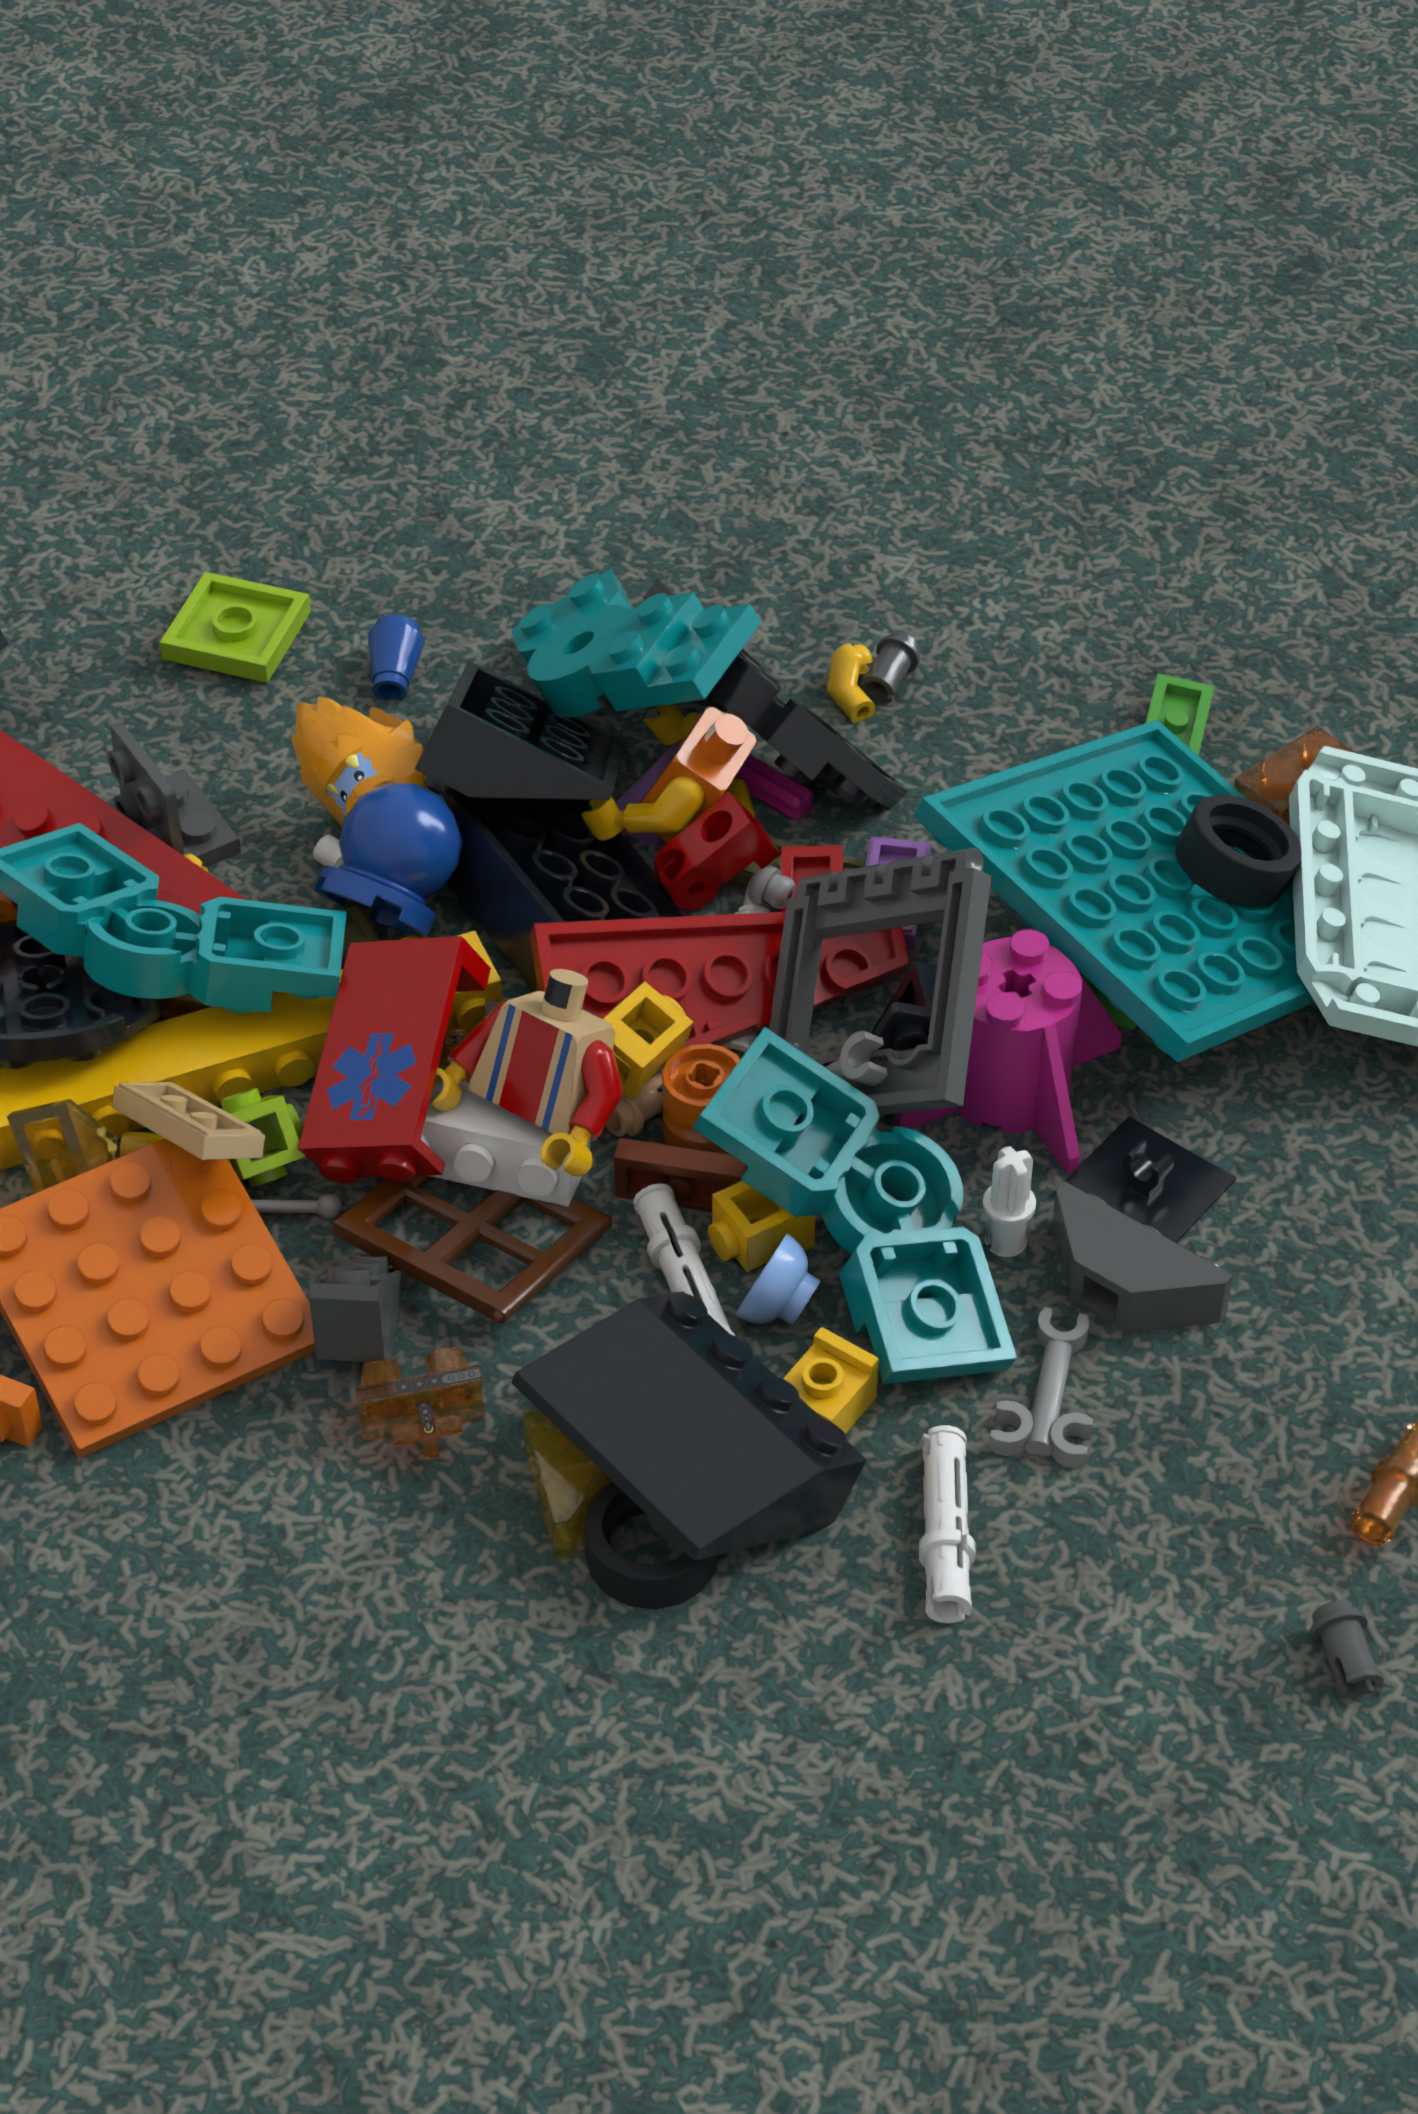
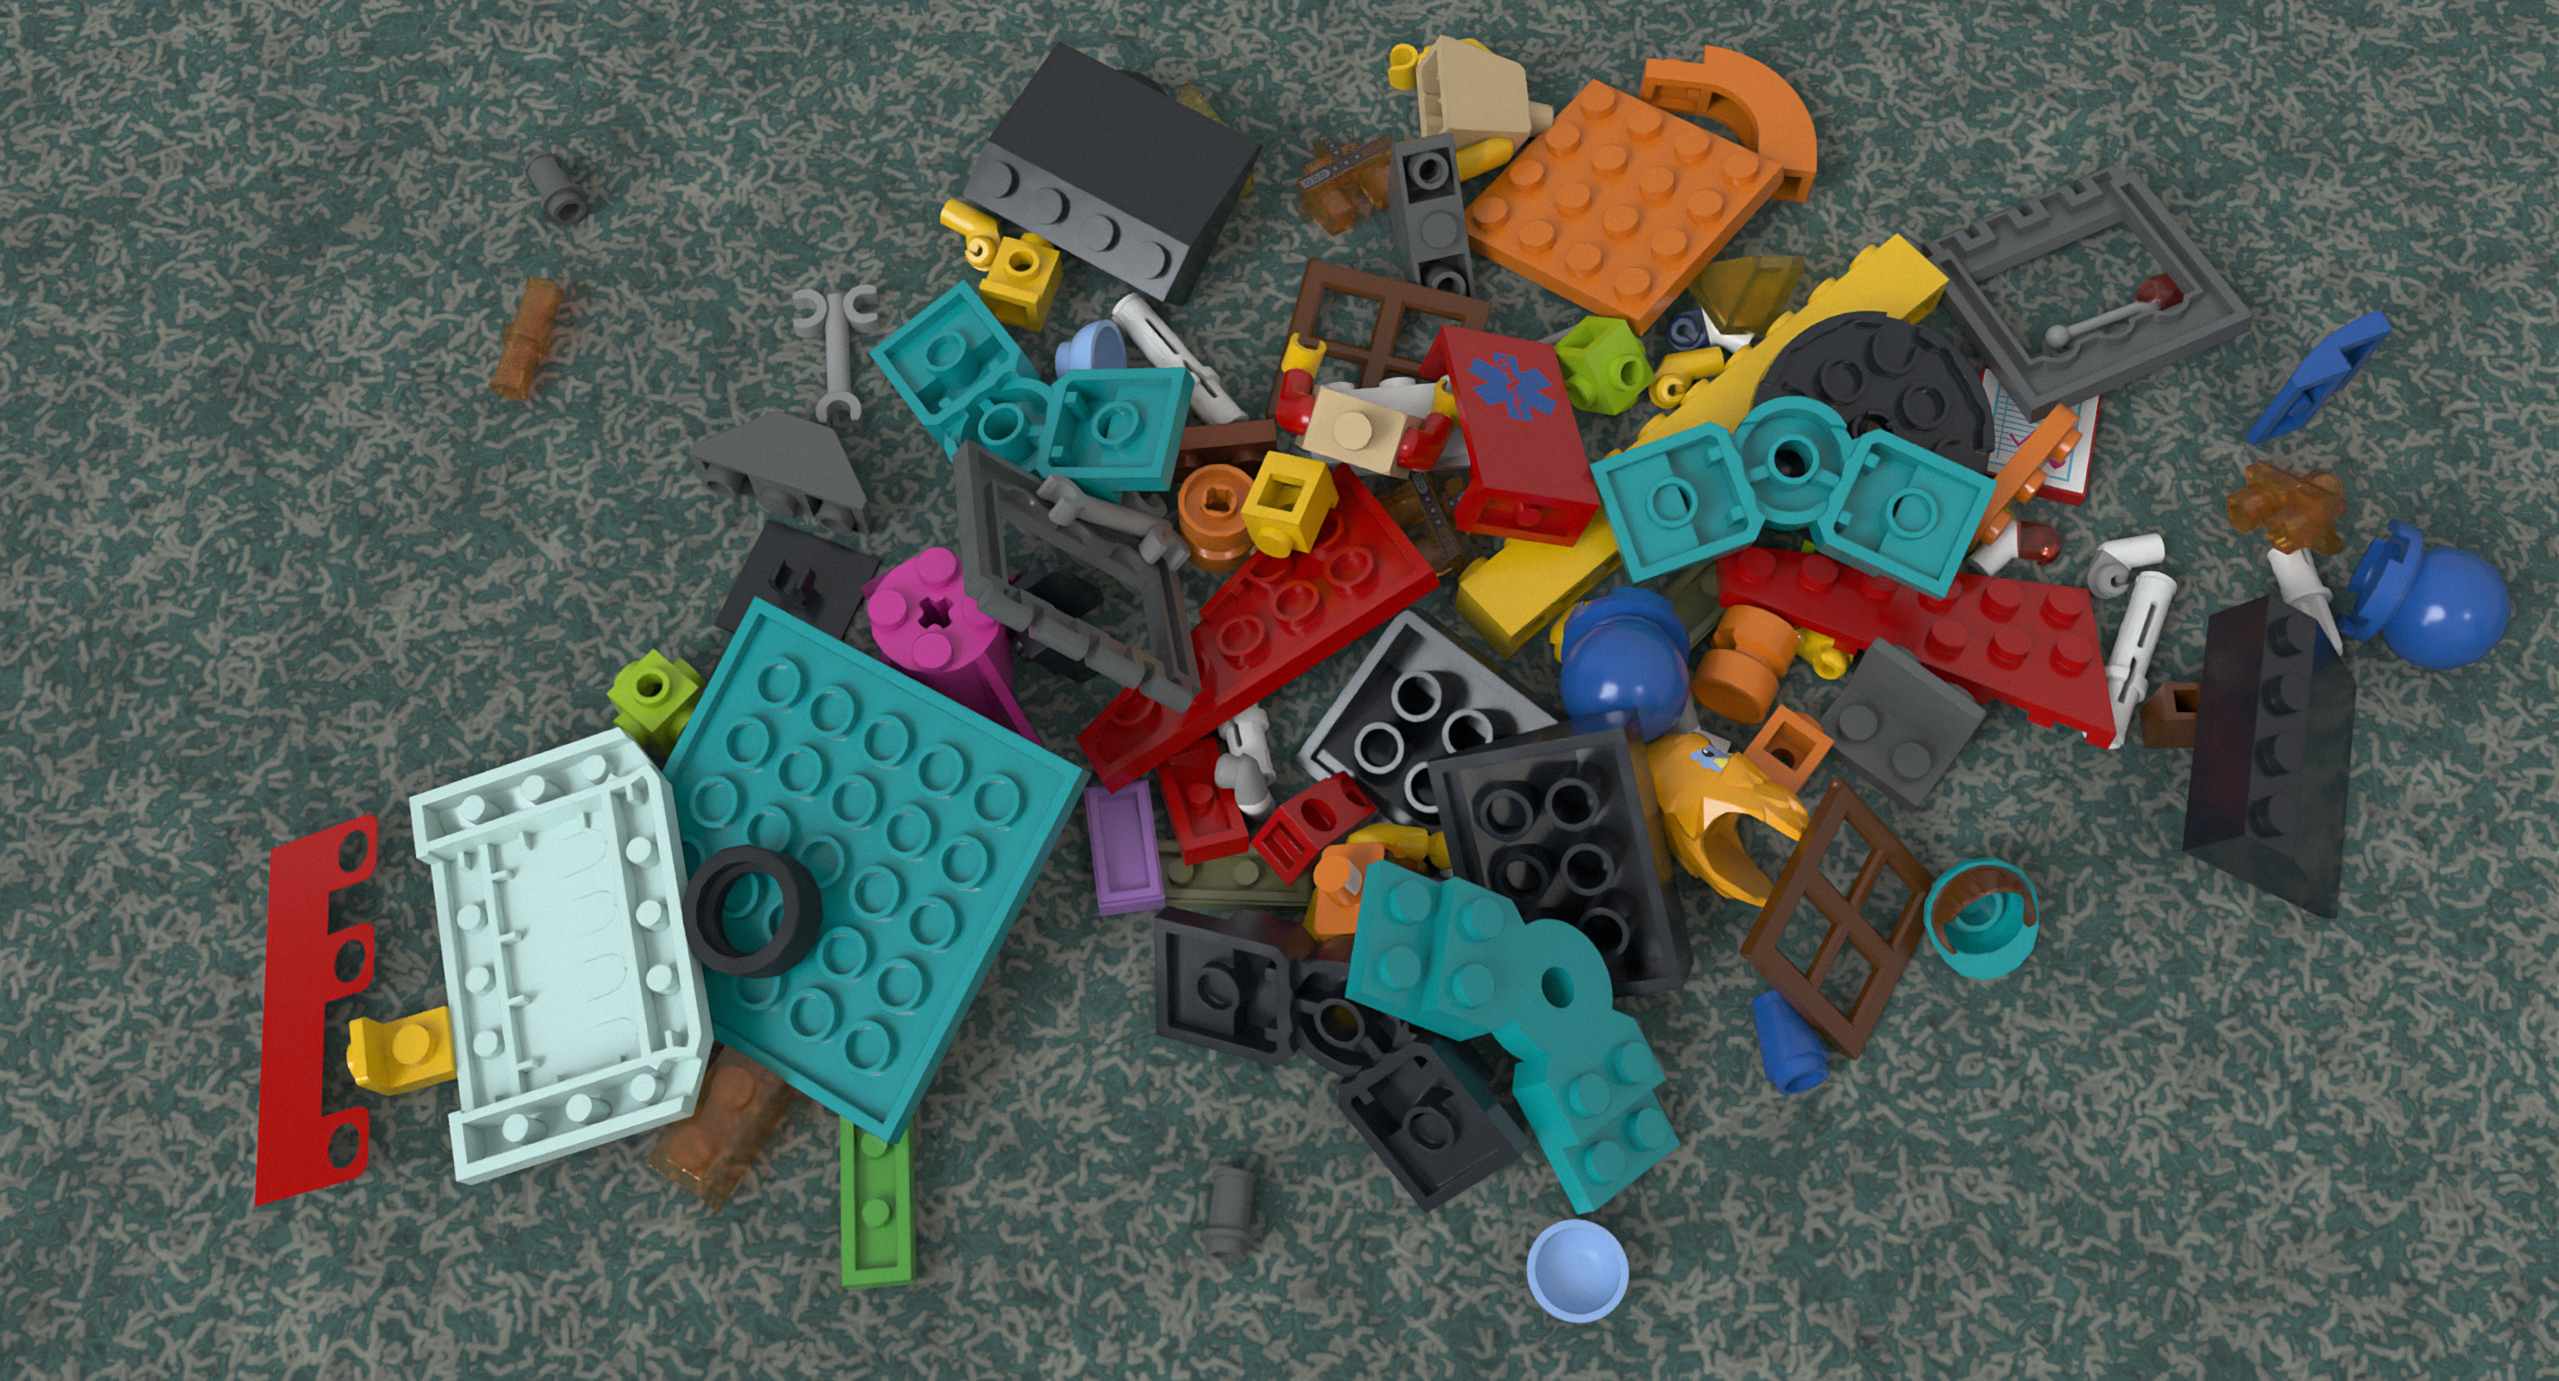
camera: 160 degrees right, 20 degrees up
(188, 678) = (1982, 917): none -> teal piece
(188, 1120) = (1649, 299): tan tile -> none
(235, 627) = (1985, 1038): lime plate -> none
(245, 1428) = (1474, 97): none -> tan torso
(277, 864) = (1744, 664): none -> orange wheel
(281, 815) = (1797, 740): none -> orange brick
(307, 685) = (1802, 878): none -> reddish brown window
(638, 563) = (1577, 1271): none -> light blue piece
(845, 667) = (1275, 1172): yellow arm -> none
(868, 1493) = (981, 232): none -> yellow arm
(946, 1545) = (887, 184): white pin -> none
(1009, 1202) = (906, 476): white axle -> none
(1299, 1092) = (656, 700): none -> lime brick

